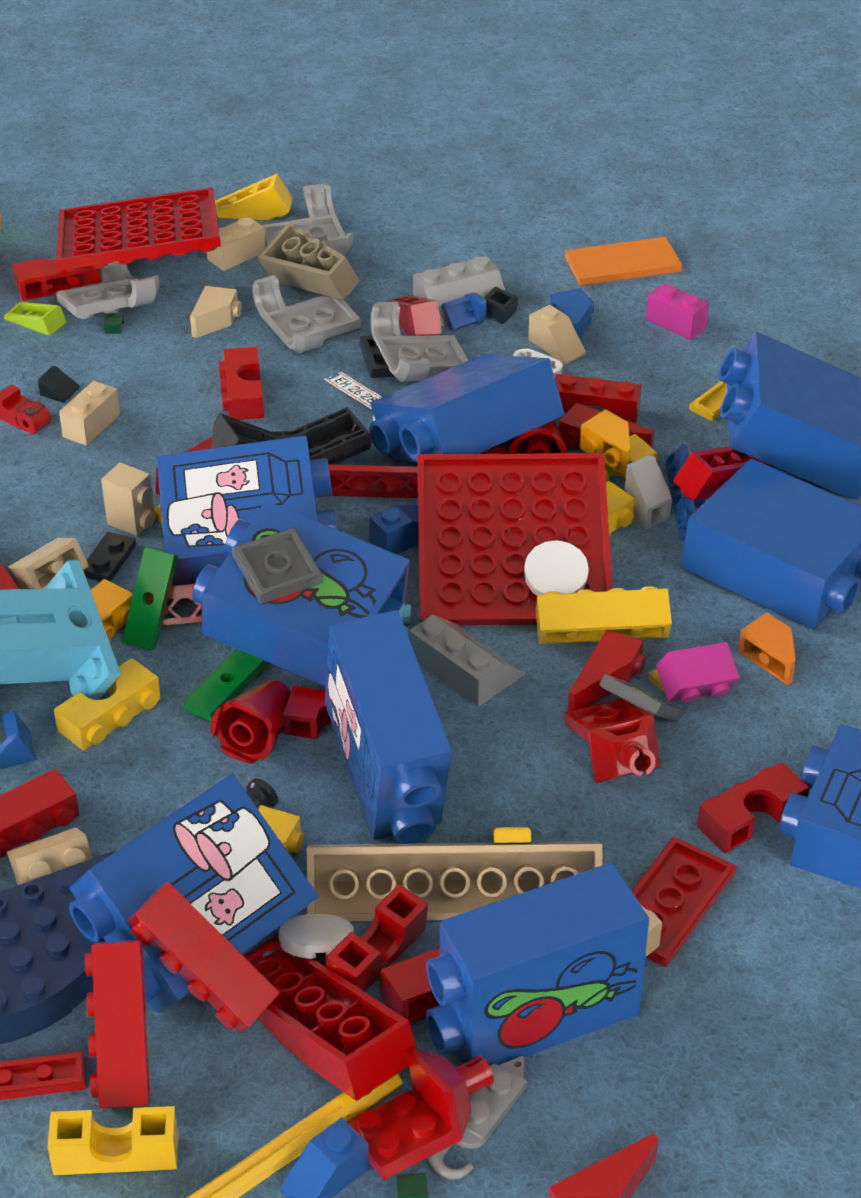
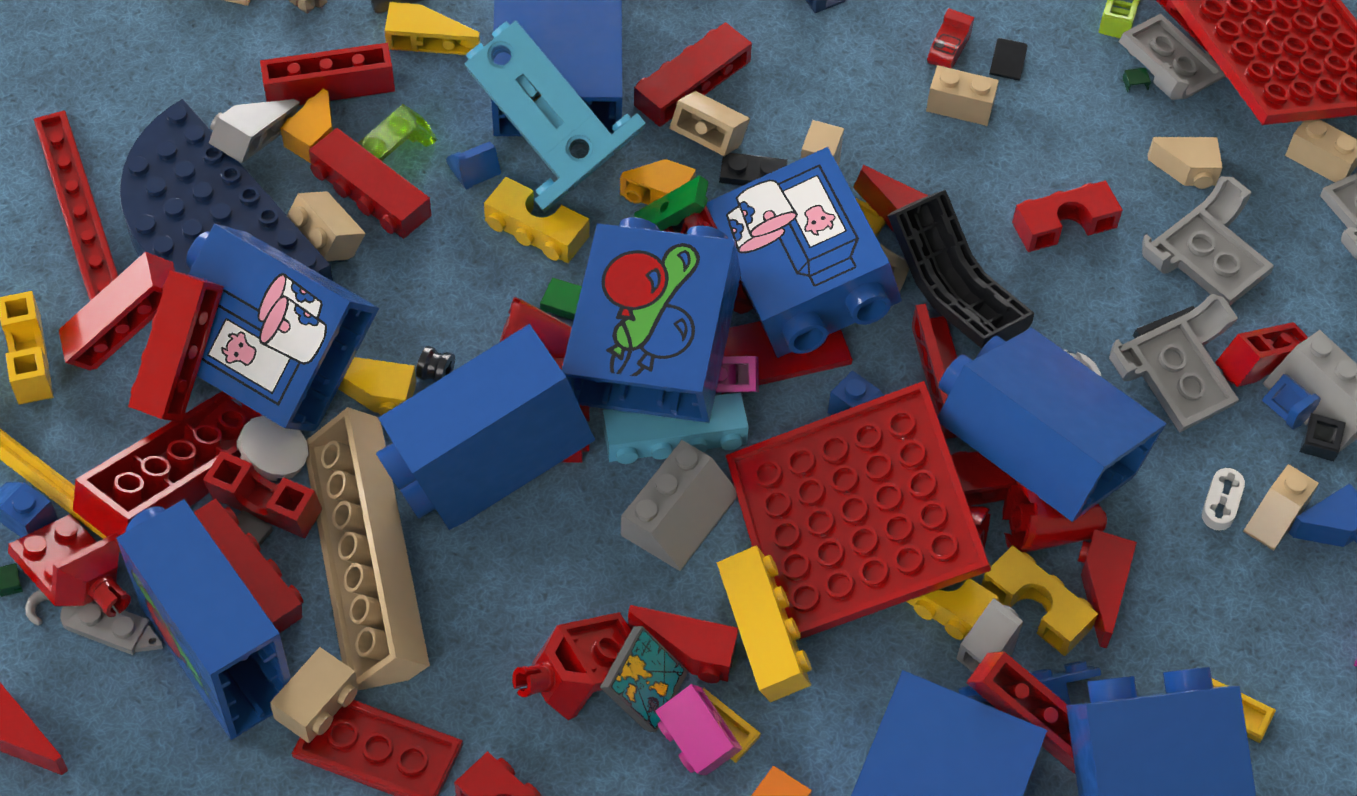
camera: 75 degrees right, 15 degrees up
(277, 565) = (646, 274): dark grey tile -> none
(308, 264) = (1296, 221): dark tan wedge -> none
(353, 388) = (1101, 328): white sticker -> none
(510, 834) = (417, 583): yellow tile -> none
(556, 568) = (813, 562): white tile -> none
(607, 435) = (1055, 582): light orange slope -> none
(617, 397) = (1167, 582): red arch -> none

